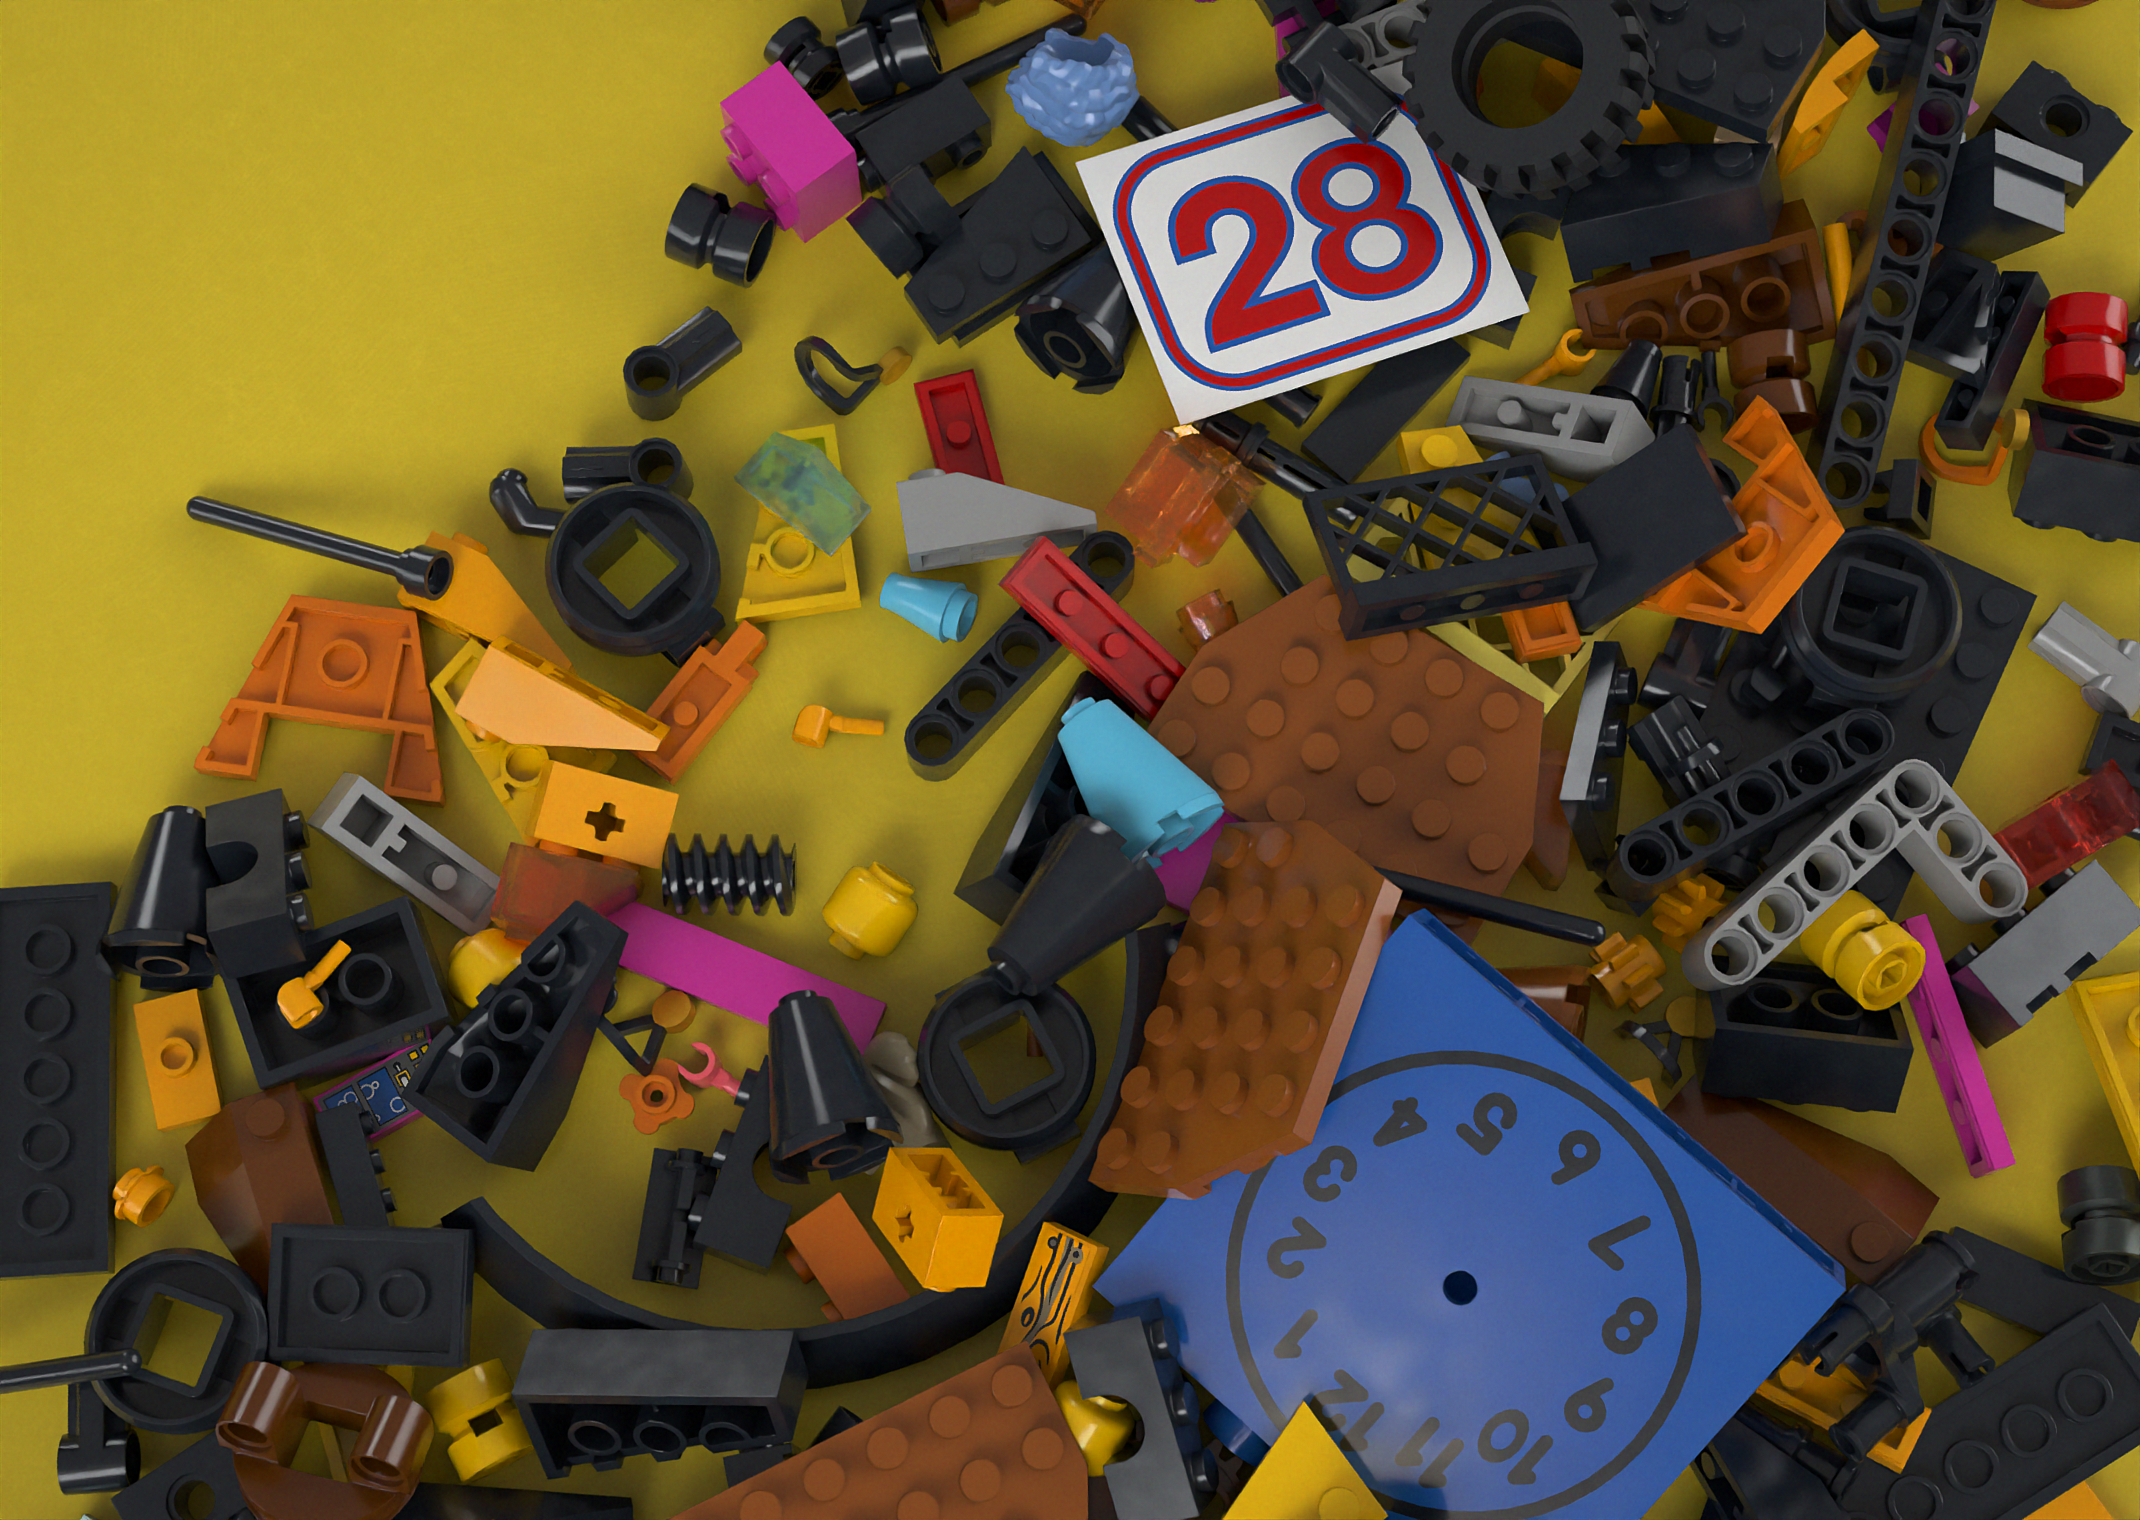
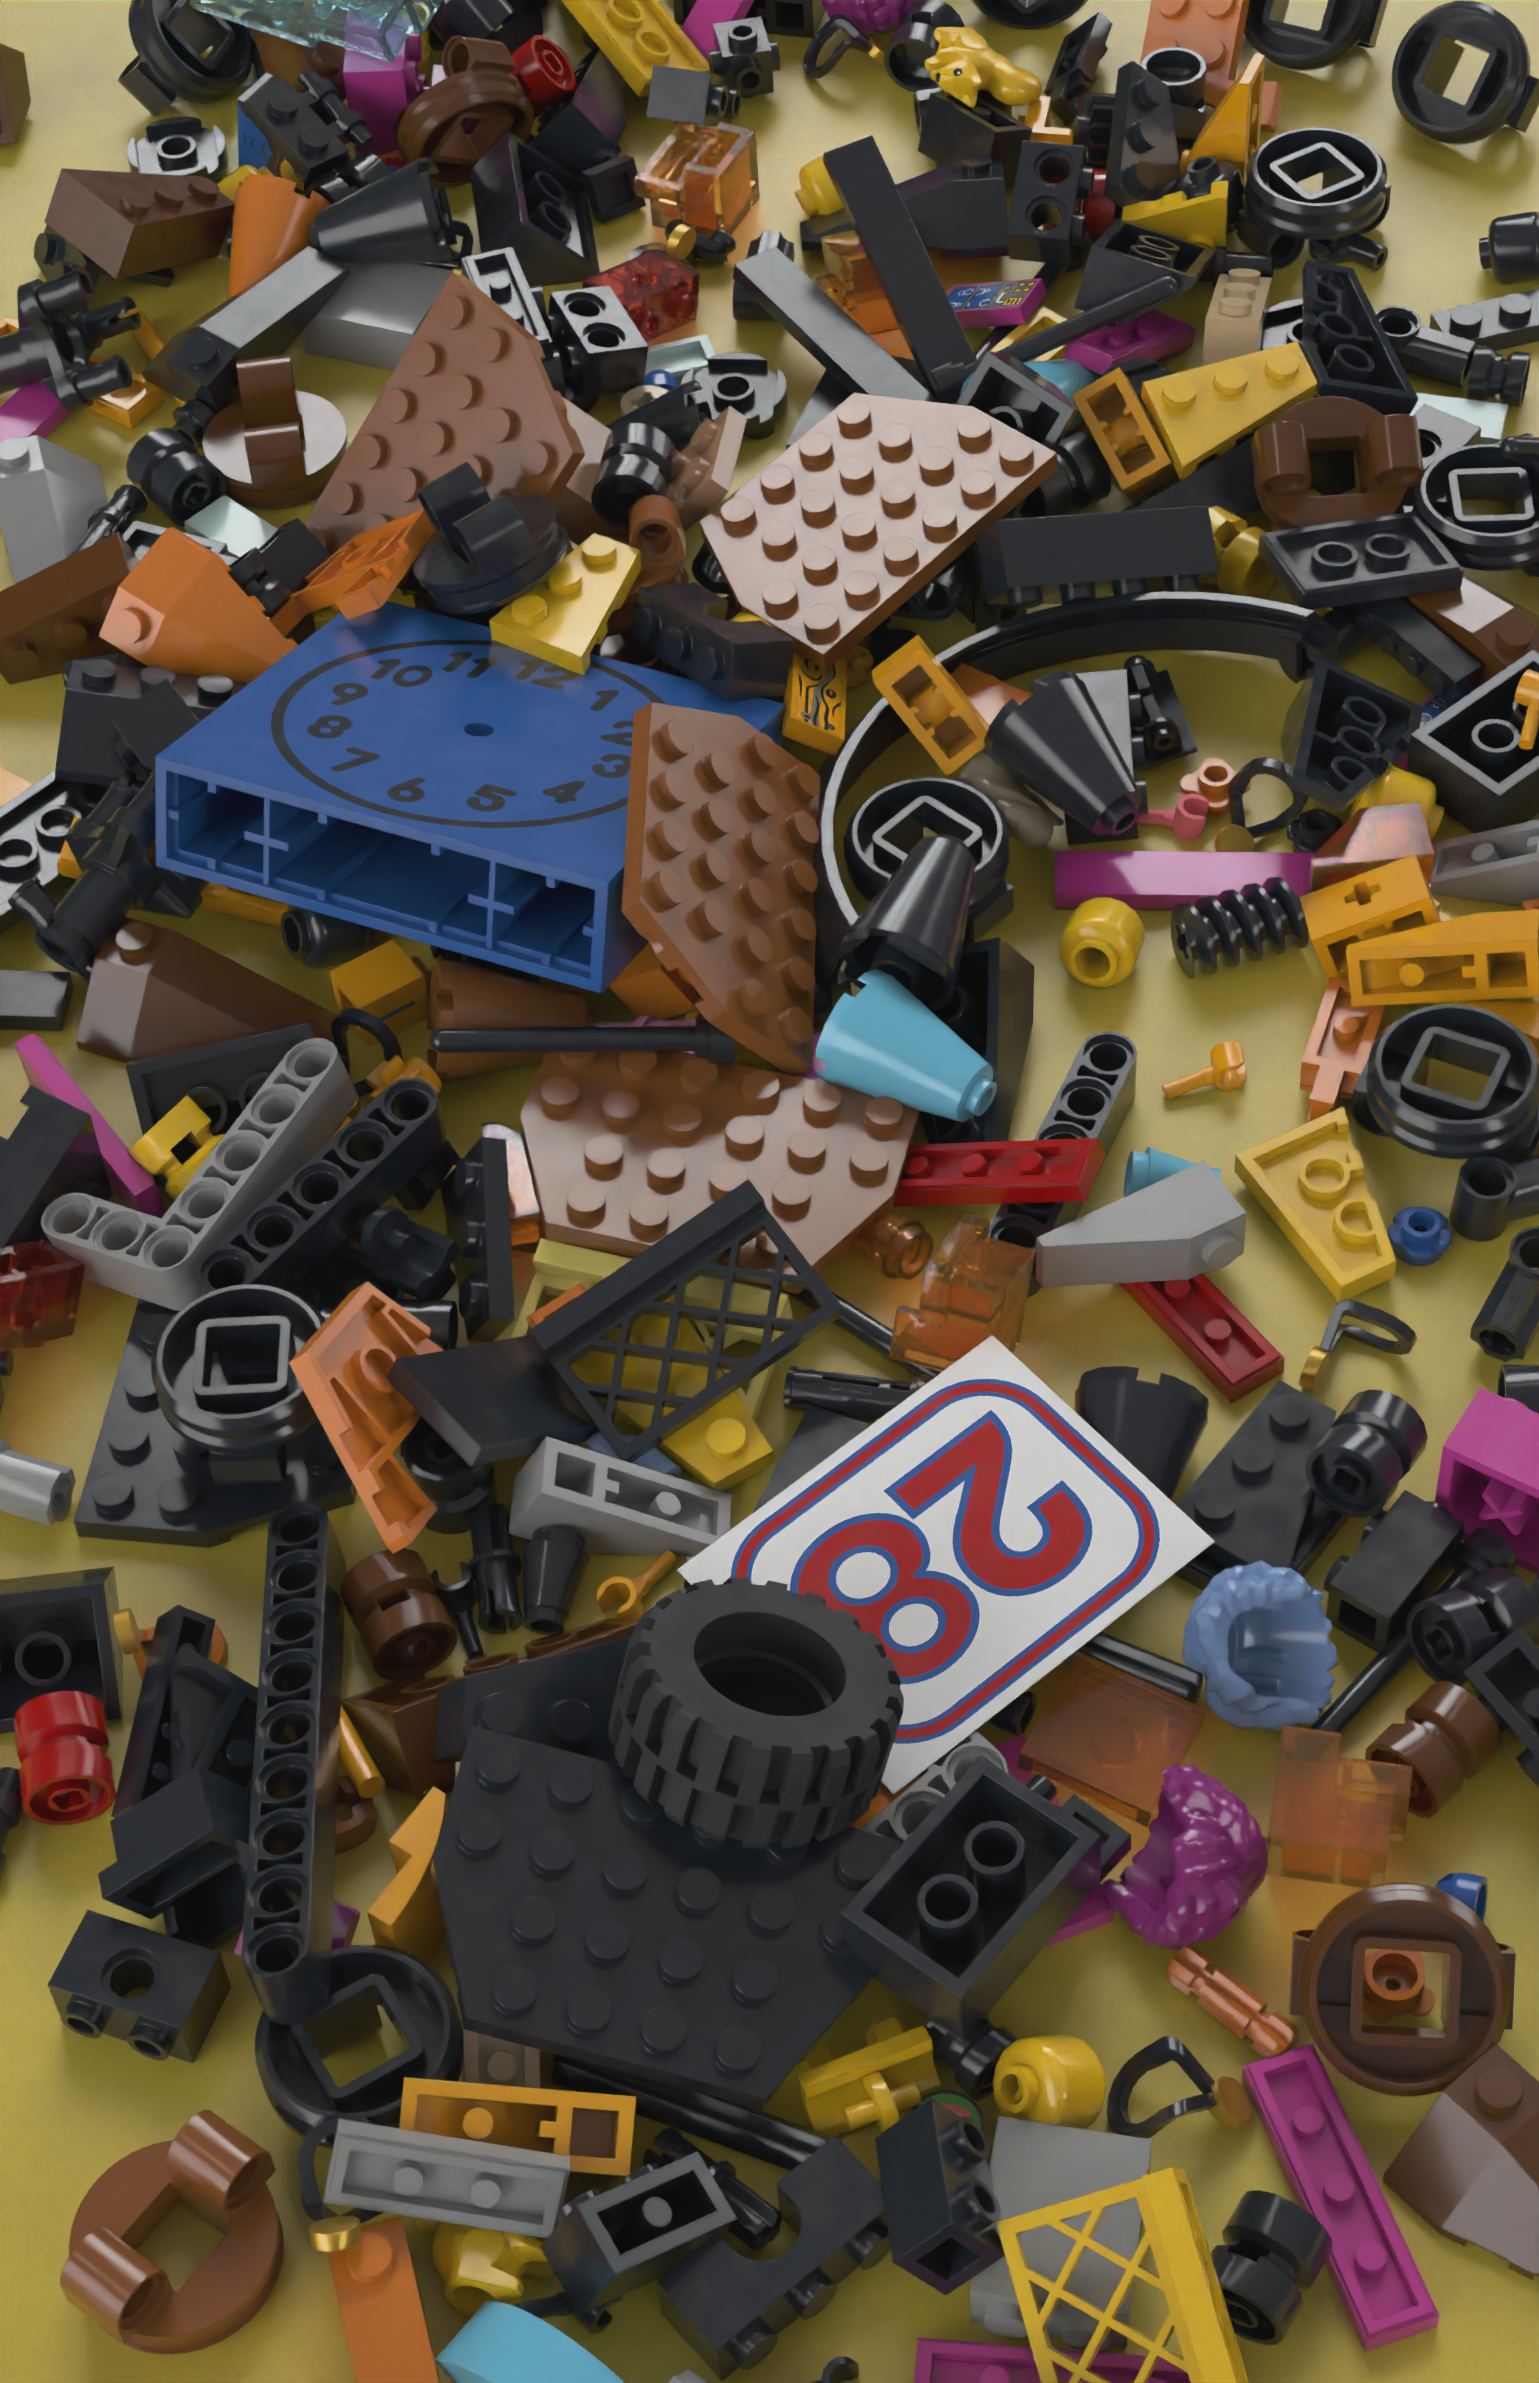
camera: 165 degrees right, 25 degrees down
(714, 475) = (1419, 1247): none -> blue plate
(804, 490) = (1339, 1203): clear light blue slope -> none
(1210, 71) = (1111, 1738): none -> clear orange tile
(1327, 71) = (984, 1703): black piece -> none
(1910, 498) = (226, 1561): black tile -> none

